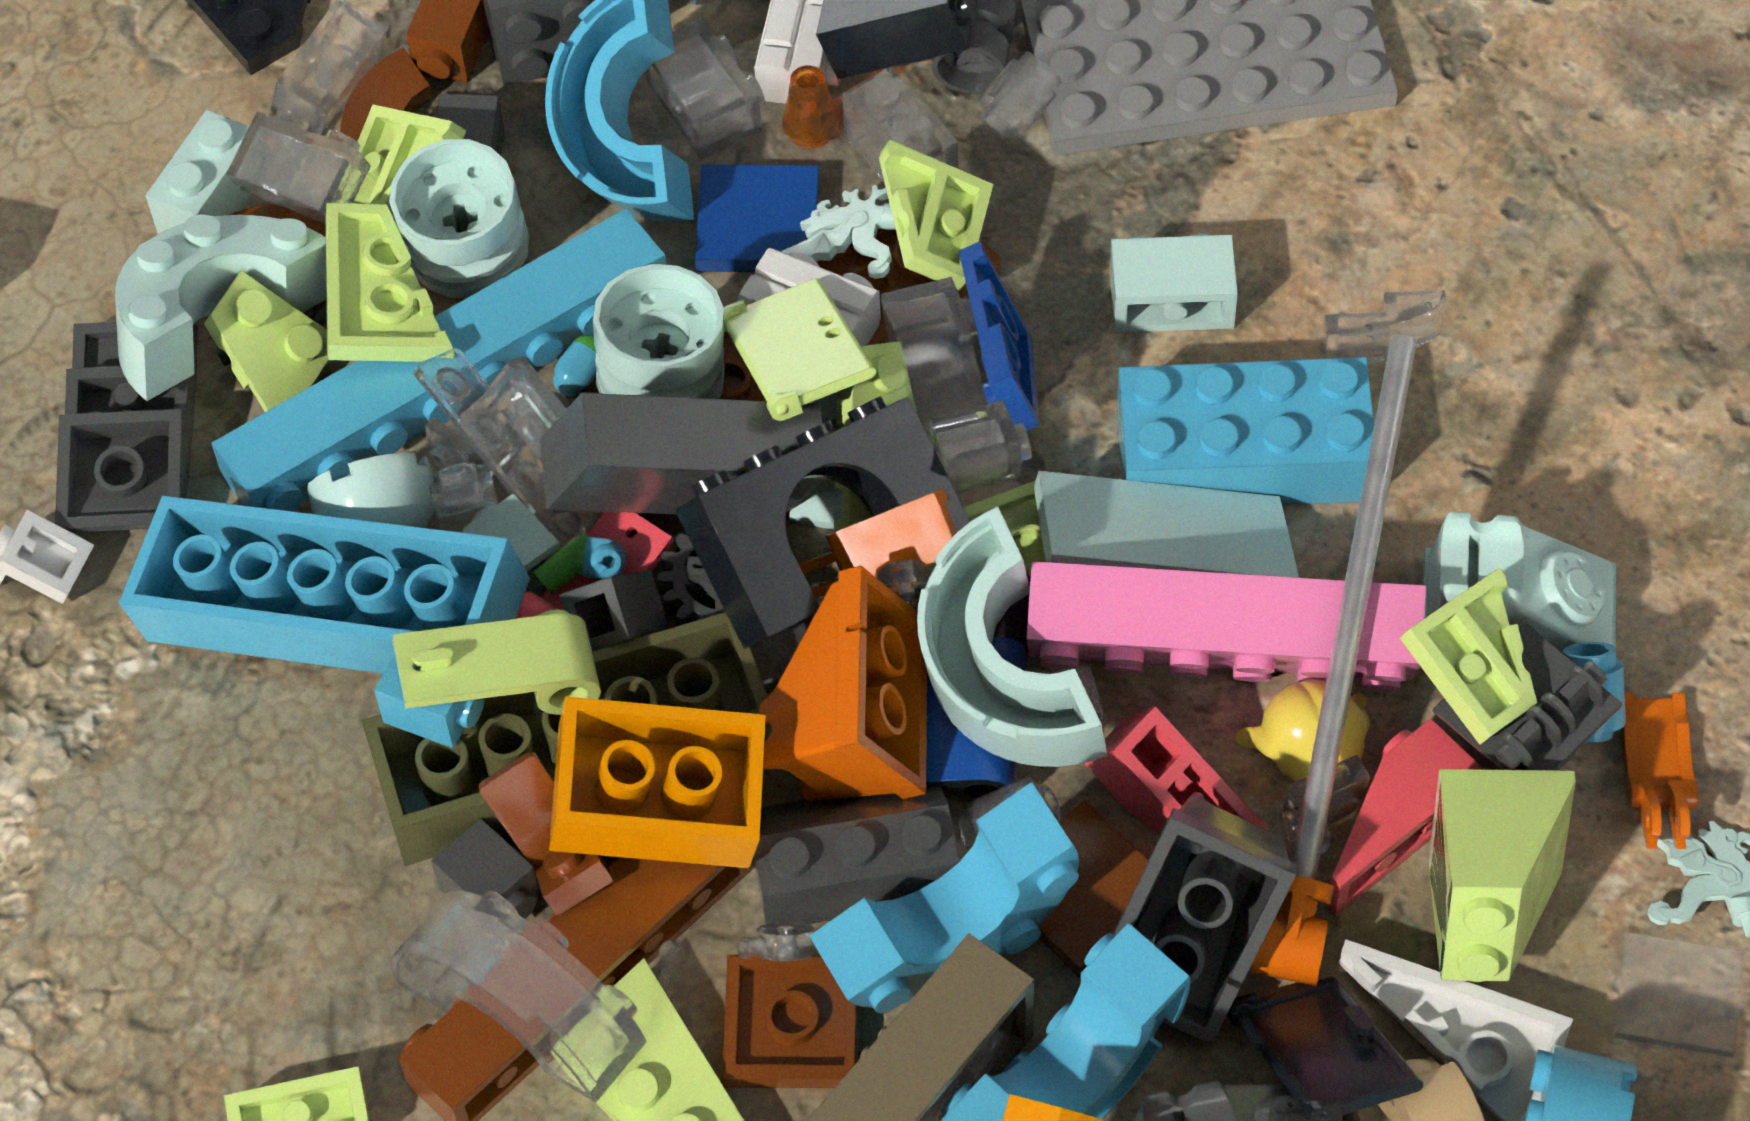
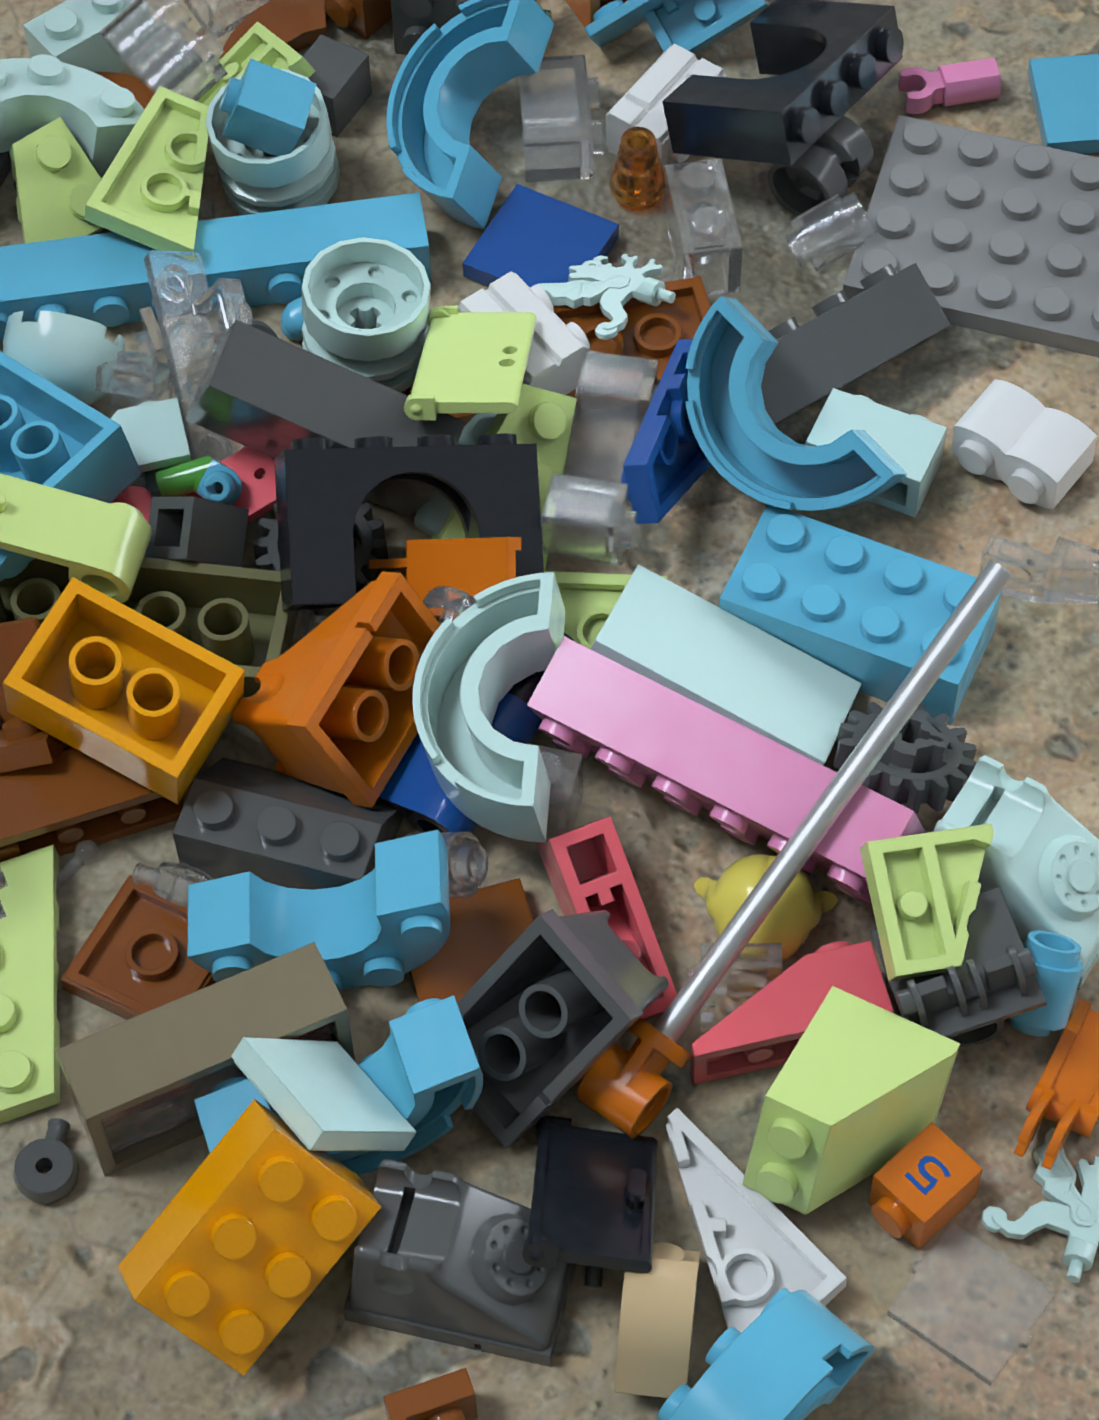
camera: 25 degrees right, 0 degrees up
(454, 184) = (267, 108): none -> medium azure brick
(933, 210) = (679, 292): yellowish green wing -> none
(1057, 1065) = (322, 1095): none -> light aqua tile
(1082, 209) = (848, 338): none -> dark grey brick
(1089, 328) = (744, 443): none -> medium azure brick
(1297, 223) = (1023, 444): none -> white brick
(1325, 539) = (922, 762): none -> dark grey gear
(1589, 911) = (923, 1187): none -> orange brick

